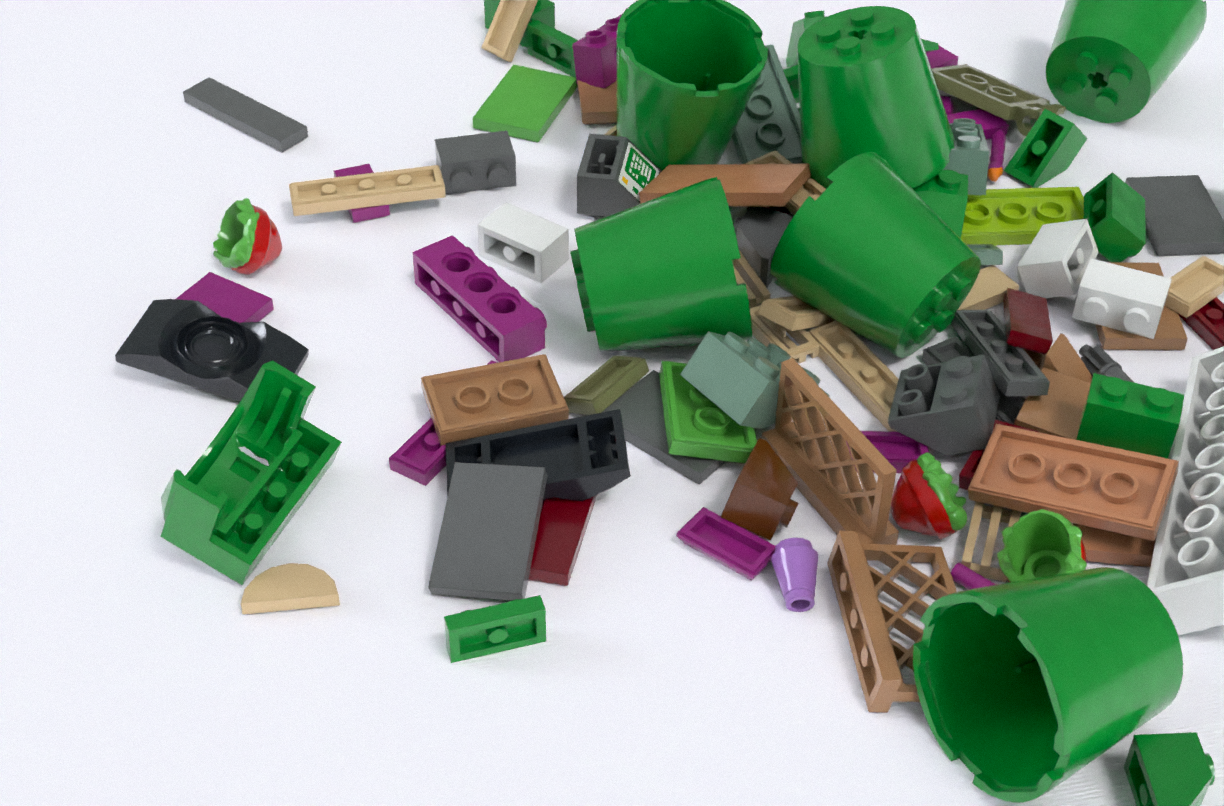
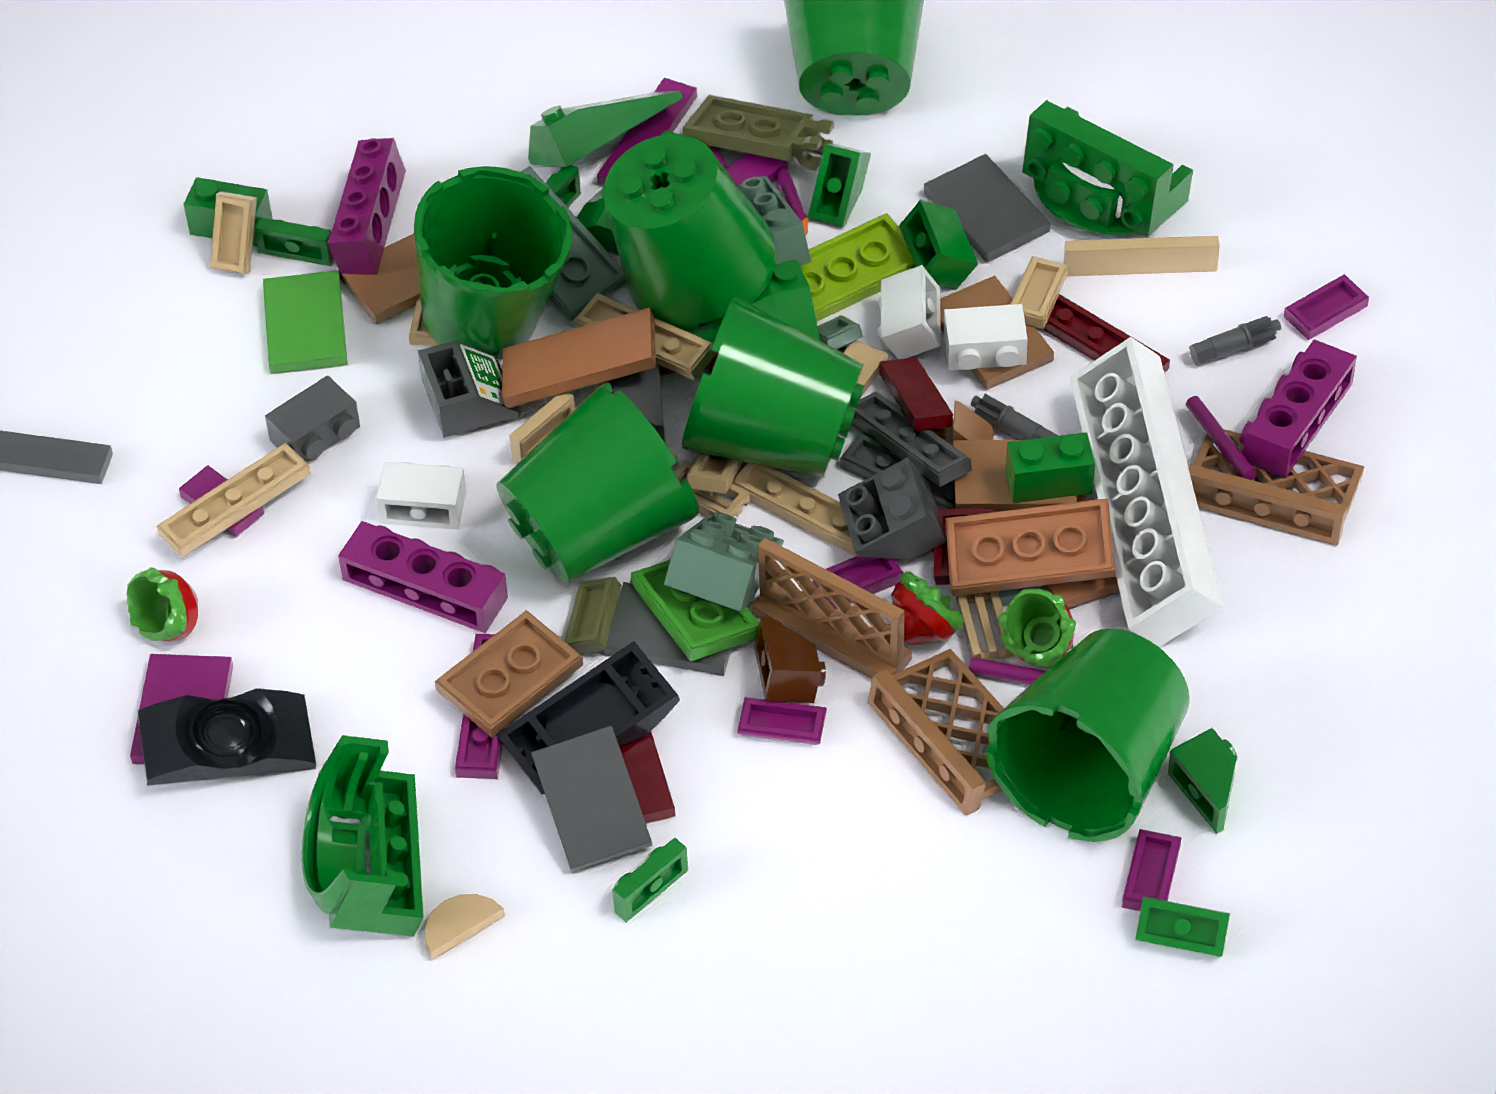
camera: 25 degrees left, 10 degrees up
(796, 572) = (851, 722): medium lavender cone -> none

